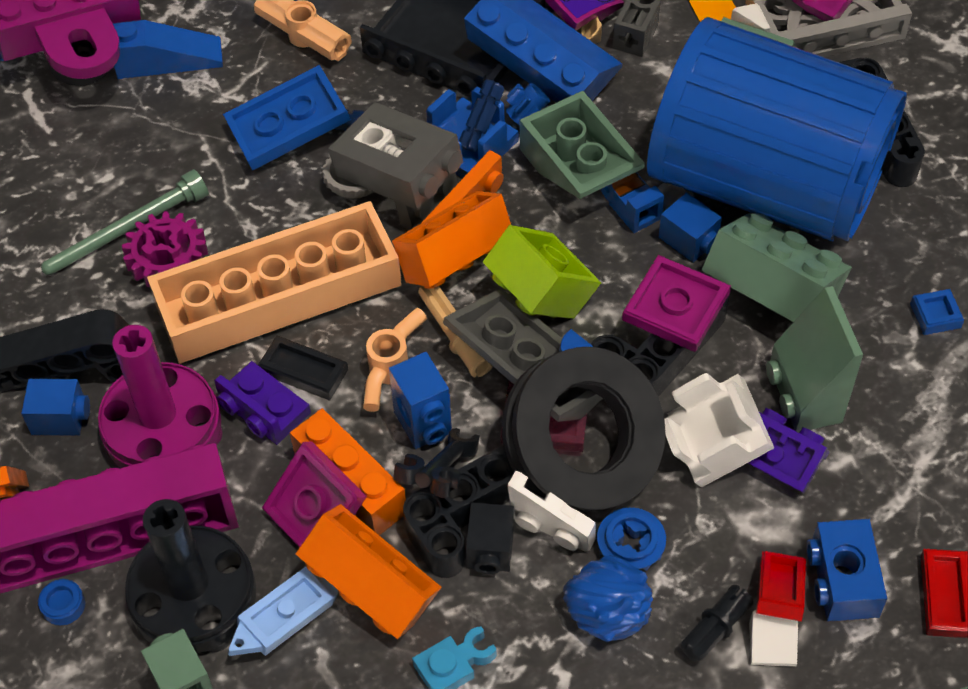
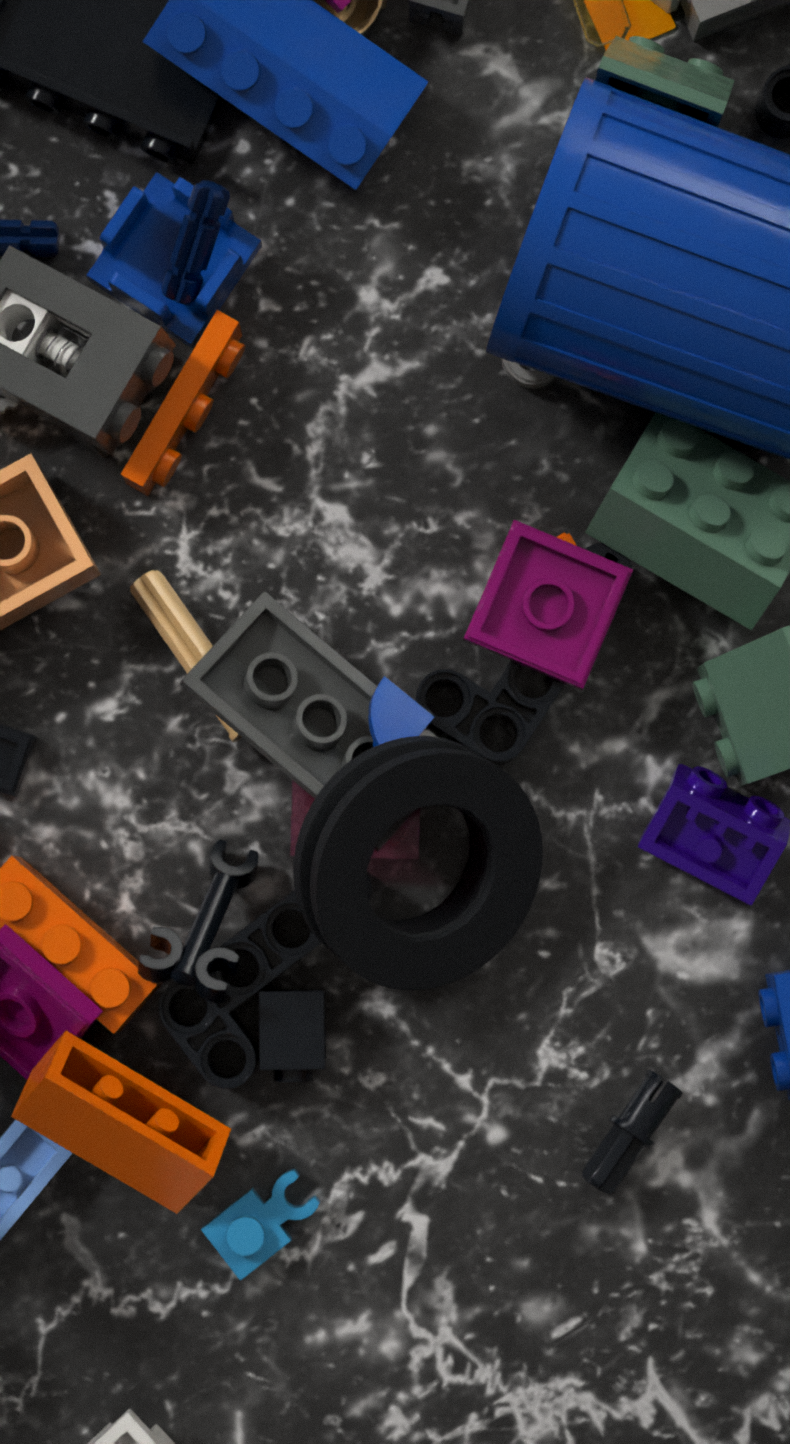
camera: 10 degrees left, 30 degrees up
(384, 344) = (87, 755): light nougat piece -> none
(421, 400) = (162, 823): blue brick -> none
(452, 239) = (177, 503): orange brick -> none
(525, 101) = (271, 189): blue gear -> none
(540, 273) = (327, 562): lime brick -> none
(551, 516) = (404, 1008): white wing -> none
(577, 146) = (369, 295): sand green slope -> none
(609, 598) = (474, 1118): blue hair -> none
(633, 196) = (459, 362): blue leg -> none
(637, 524) = (530, 1013): blue gear -> none
(689, 227) = (564, 427): blue brick -> none
(715, 427) = (619, 820): white panel -> none
(773, 640) = (713, 1146): white slope -> none
(781, 586) = (723, 1072): red tile -> none

